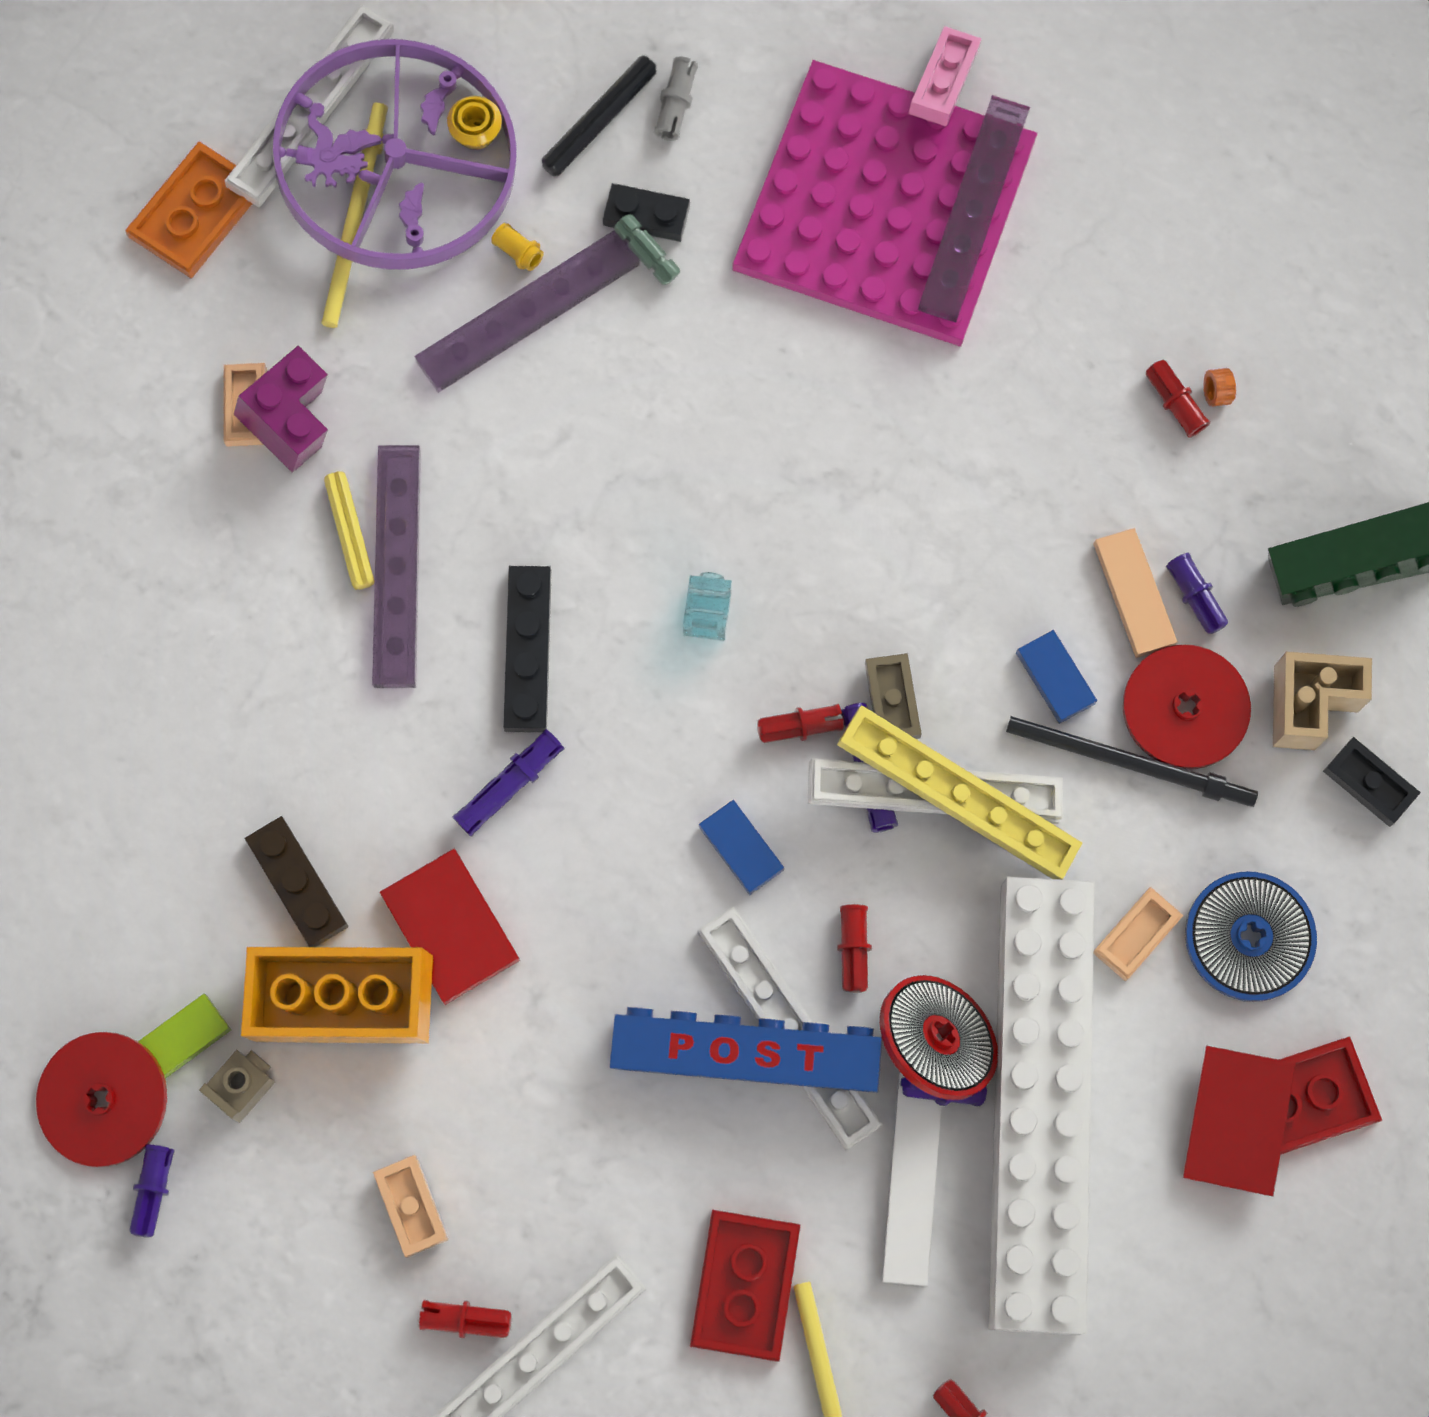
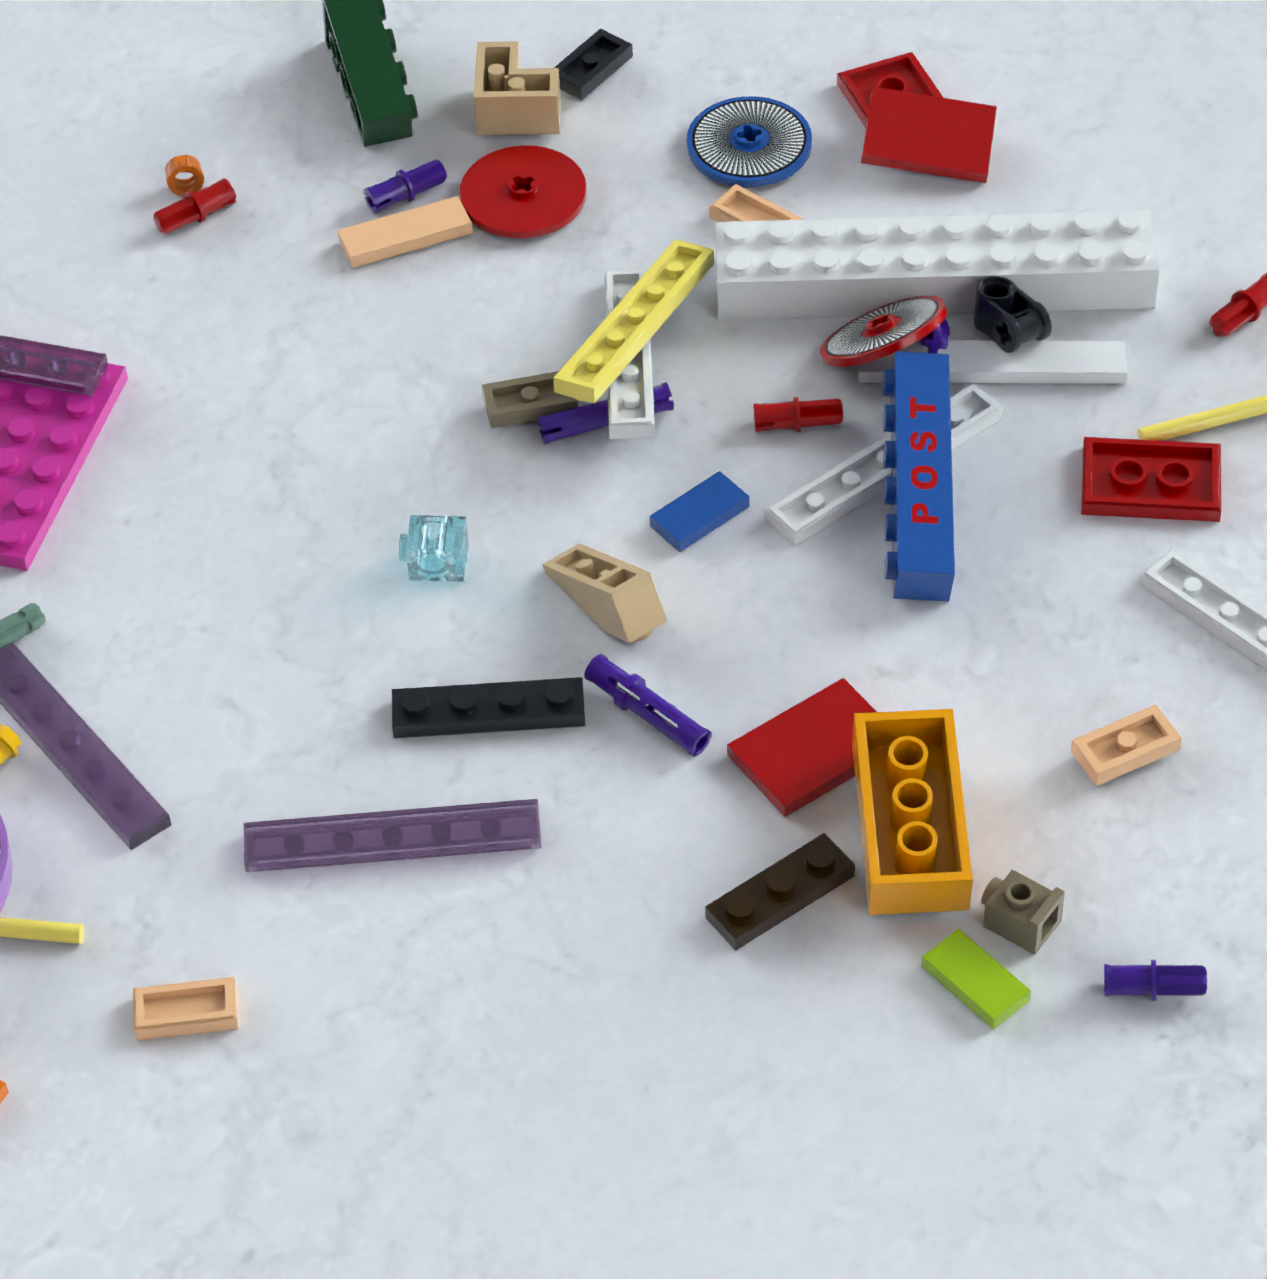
camera: 90 degrees left, 25 degrees down
(134, 1097) = (1066, 1081): red piece -> none
(277, 408) = (202, 947): magenta brick -> none
(349, 530) = (349, 884): light yellow axle -> none
(465, 1319) = (1234, 690): red axle -> none
(641, 752) = (609, 591): none -> tan slope
(799, 724) = (562, 467): red axle -> none
(947, 1170) = (1009, 314): none -> black piece
(1056, 676) = (497, 284): blue tile -> none
(1211, 785) = (601, 173): black bar -> none

